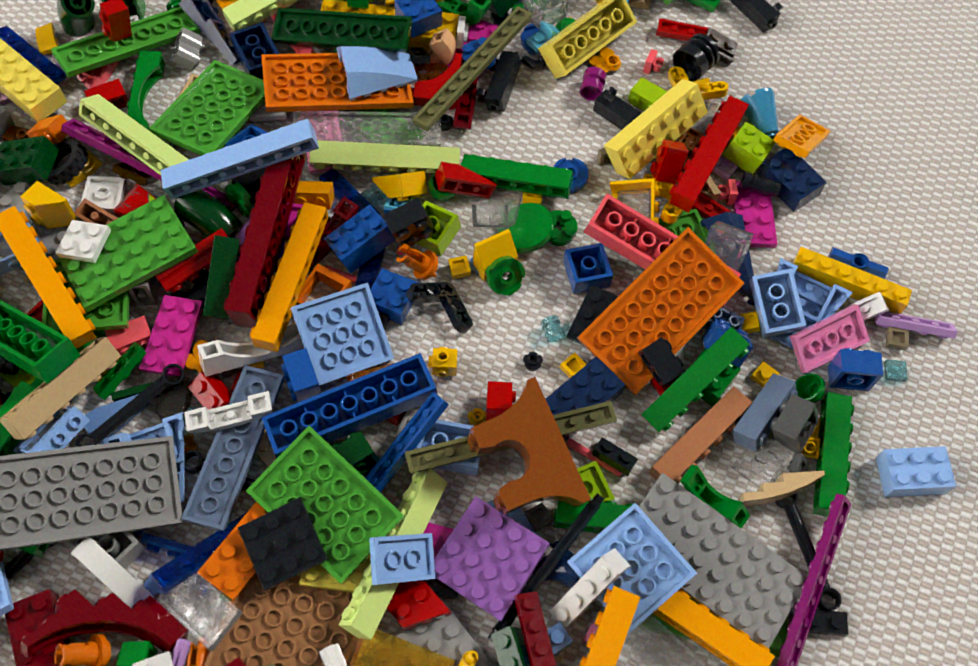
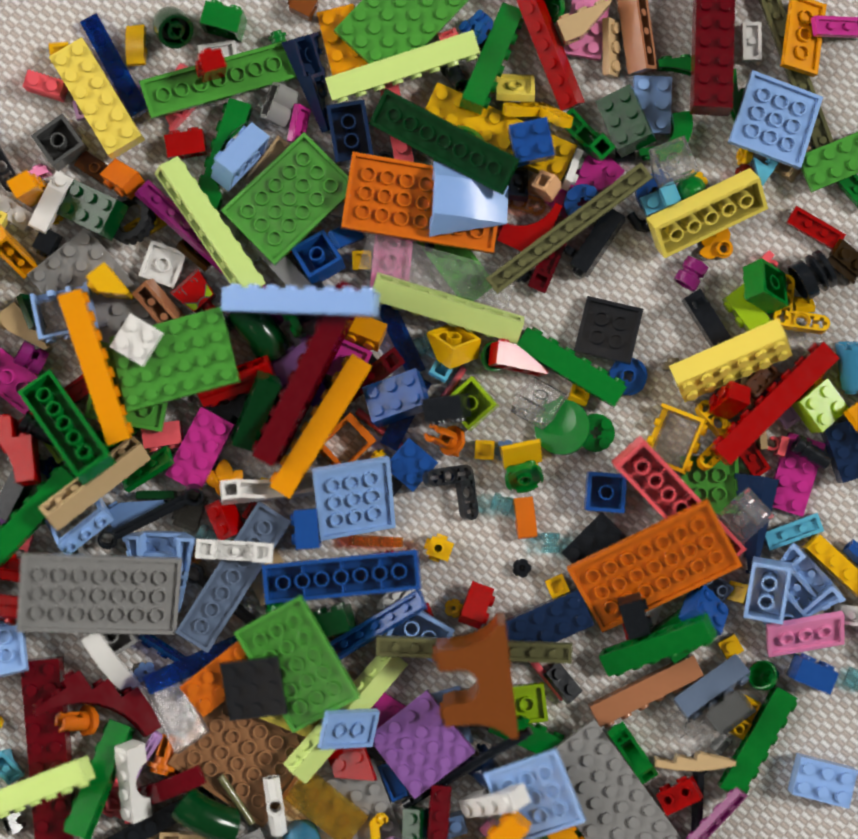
camera: 25 degrees right, 25 degrees up
(157, 85) = (239, 156): none -> light blue brick
(207, 55) = (298, 122): none -> dark pink plate
(269, 124) = (343, 237): none -> blue tile
(471, 617) = (393, 785): none -> blue tile
(493, 307) = (501, 503): none -> clear light blue wheel
(520, 314) = (525, 517): none -> orange slope
(539, 141) = (608, 330): none -> black plate
(659, 70) = (765, 286): none -> green brick
(770, 260) = (793, 531): none -> medium azure plate
(781, 529) = (679, 795): none -> red brick

